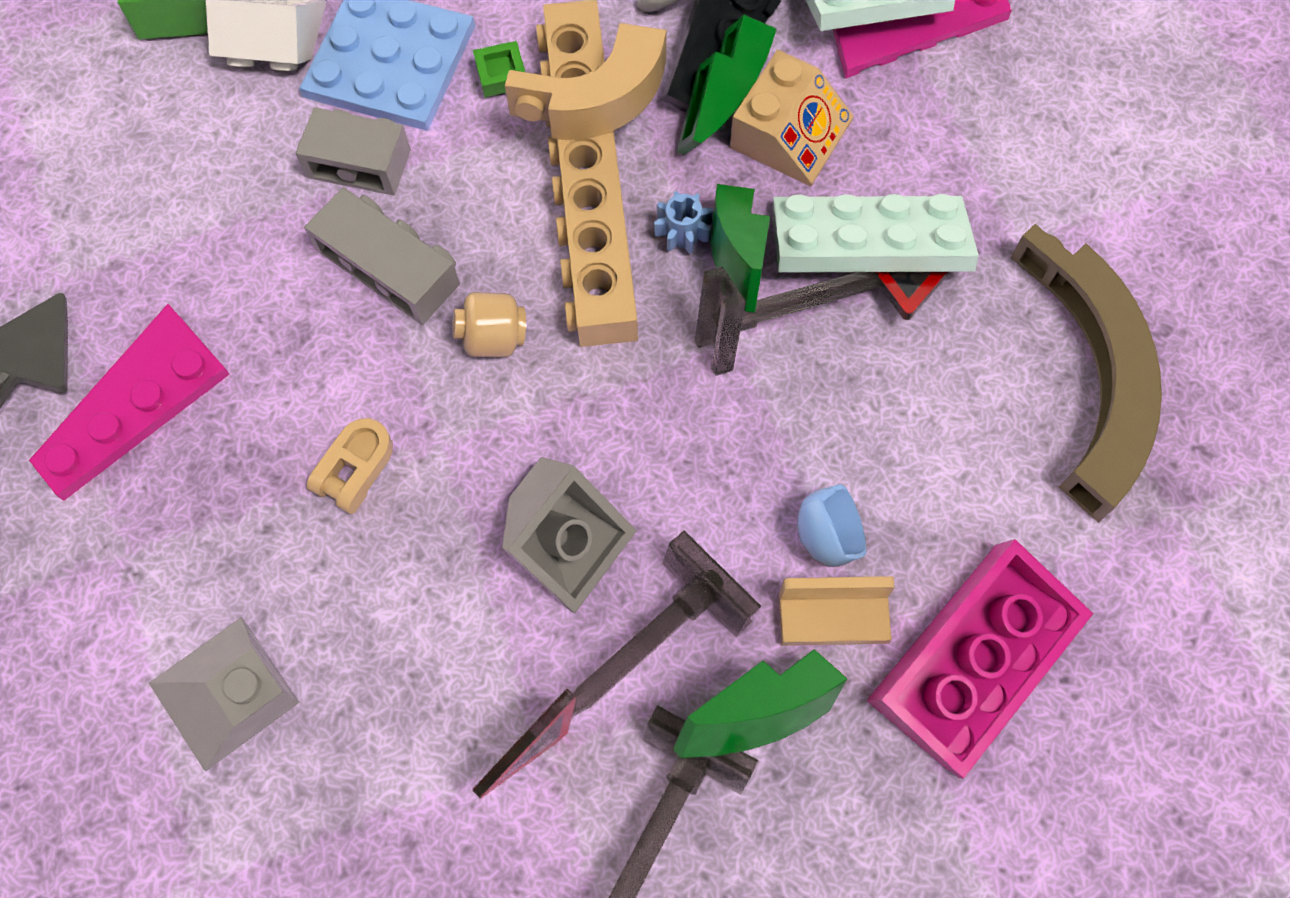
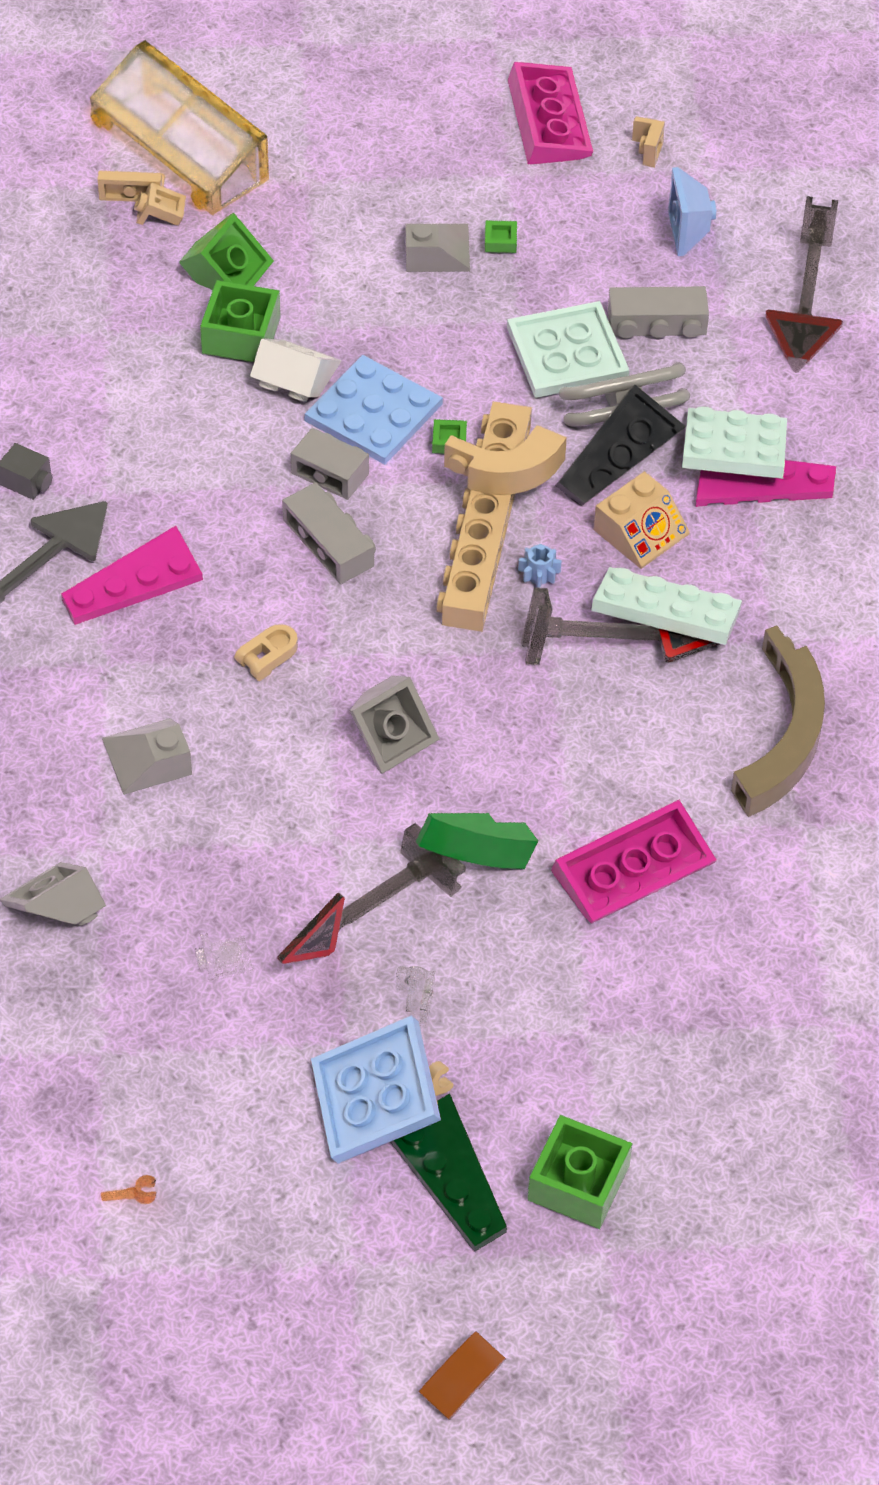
camera: 15 degrees right, 15 degrees down
(490, 324) = (385, 592): tan head -> none
(704, 588) = (341, 812): clear smoke piece -> none
(725, 80) = (601, 482): green slope -> none
(739, 240) = (571, 583): green slope -> none
(831, 527) = (566, 756): light blue hair -> none
(835, 610) = (551, 810): tan panel -> none

